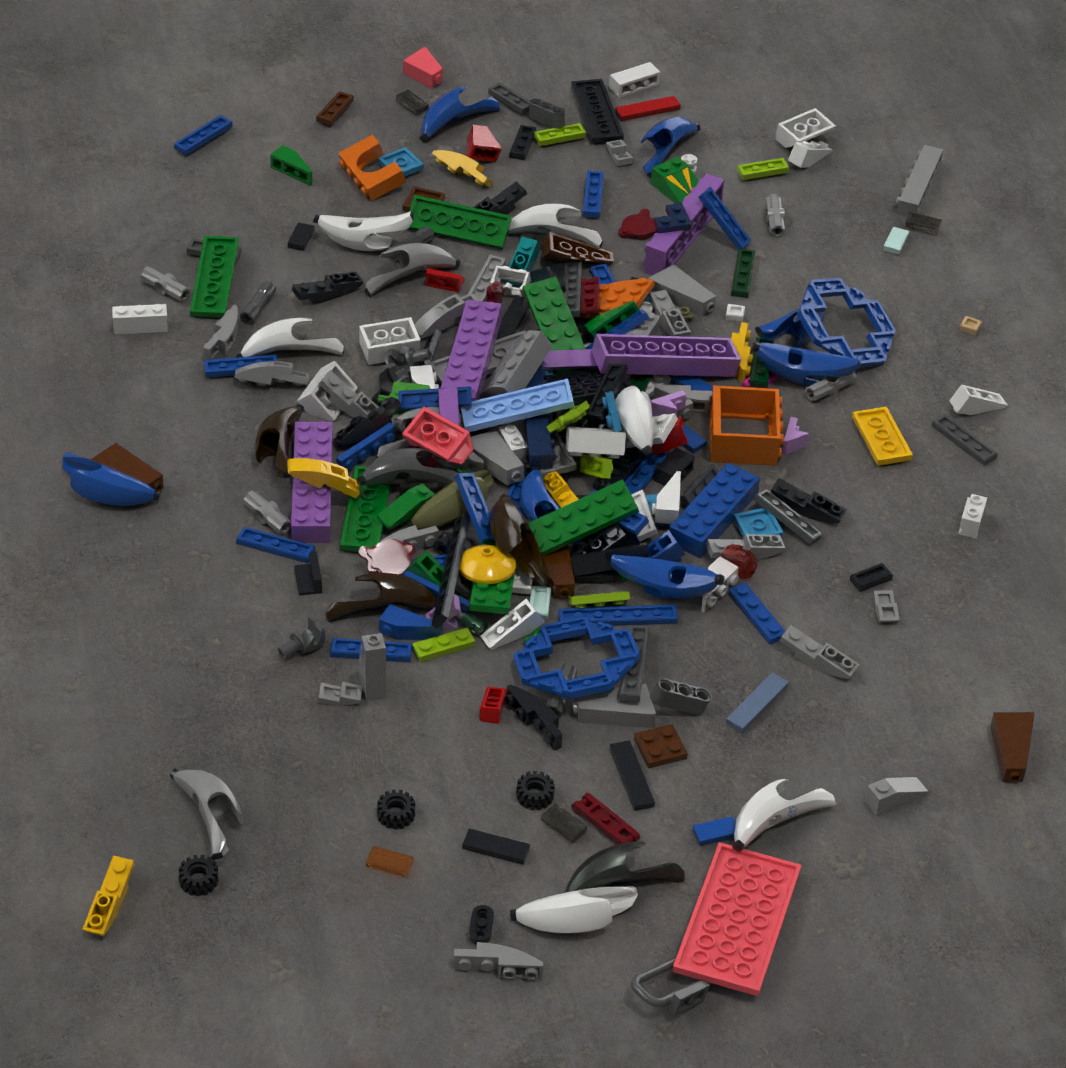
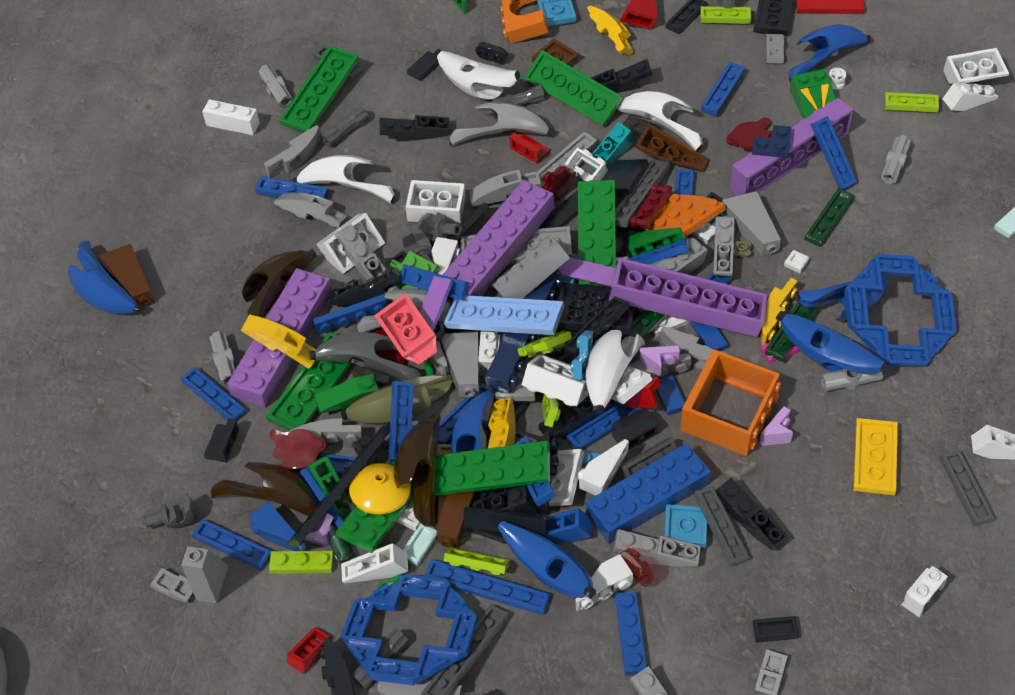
camera: 30 degrees right, 10 degrees up
(361, 210) = (491, 52): none -> black plate

